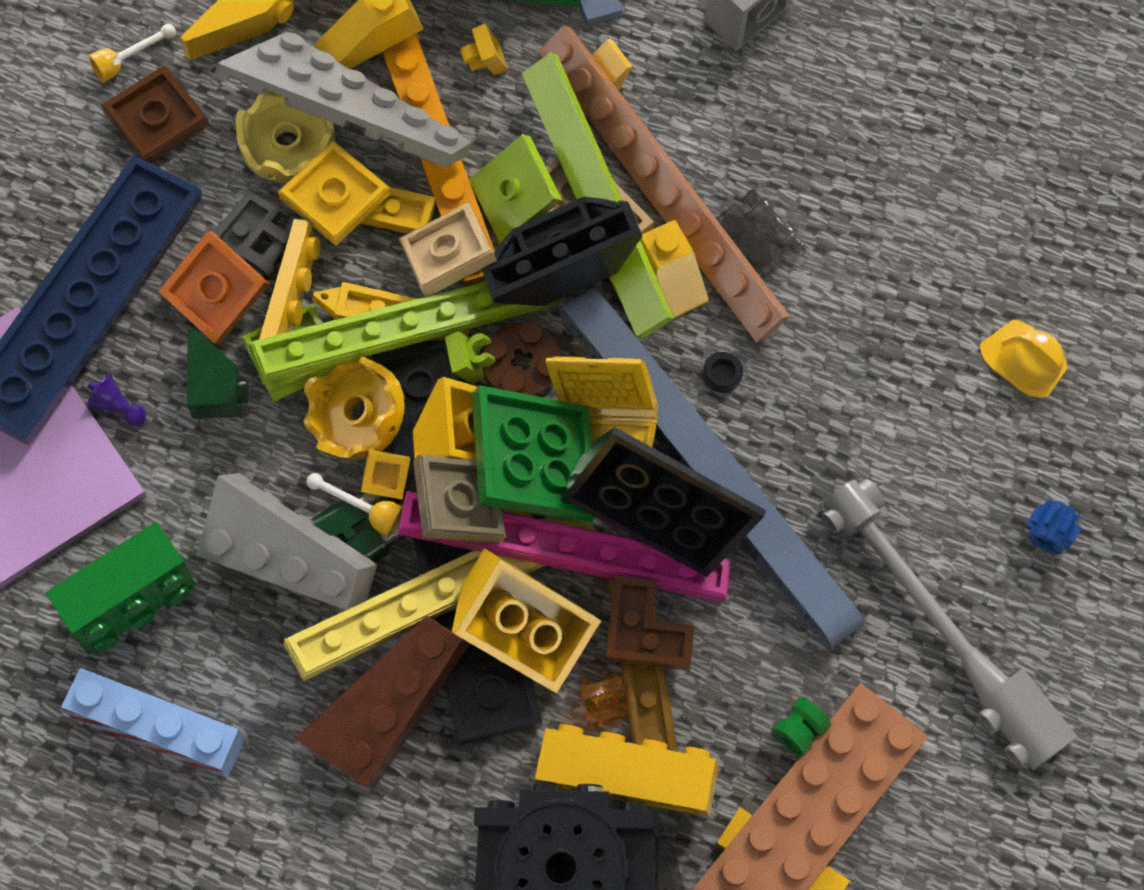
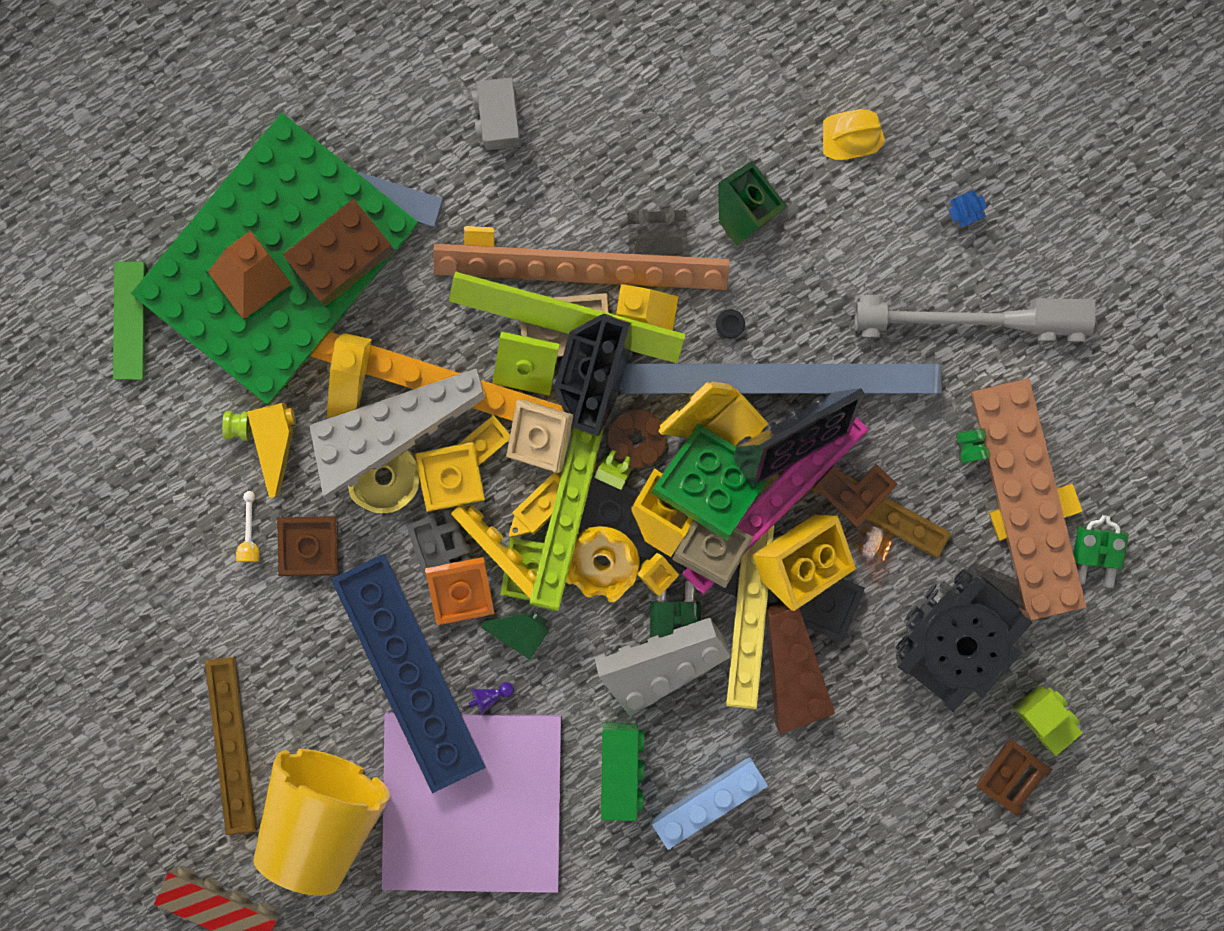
camera: 55 degrees left, 20 degrees up
(382, 516) = (680, 593): hinge -> none
(485, 51) = (413, 308): yellow tile -> none
(629, 770) = (929, 563): yellow brick -> none
(863, 295) = (747, 202): none -> dark green slope

